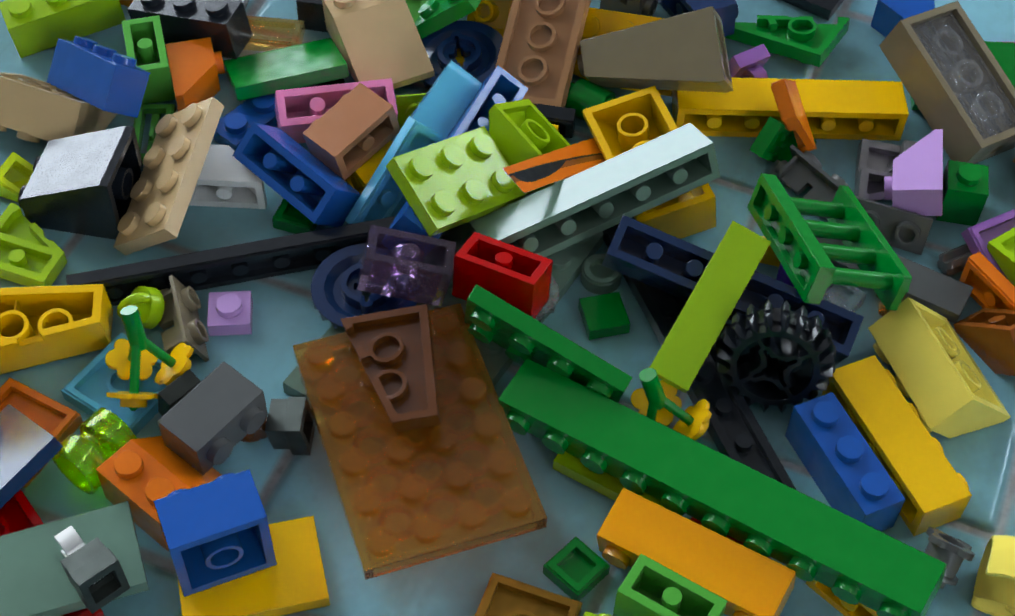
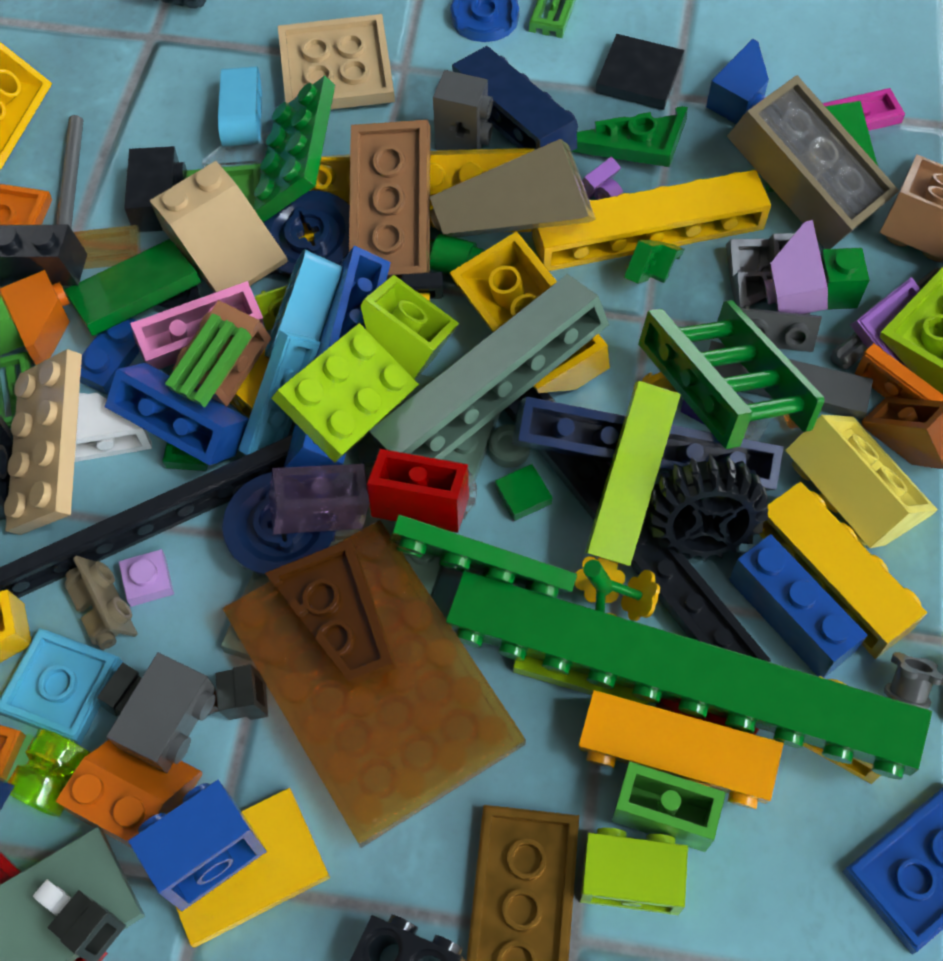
camera: 10 degrees left, 10 degrees up
(136, 357) = (61, 663): yellow plant -> none
(149, 303) = (55, 596): lime tile -> none
(333, 126) = (202, 357): none -> bright green tile
(555, 165) = (441, 350): orange sticker -> none
(576, 569) = (563, 778): green tile -> none
(793, 113) = (660, 231): orange tile -> none
(807, 171) = (683, 288): dark grey hinge -> none

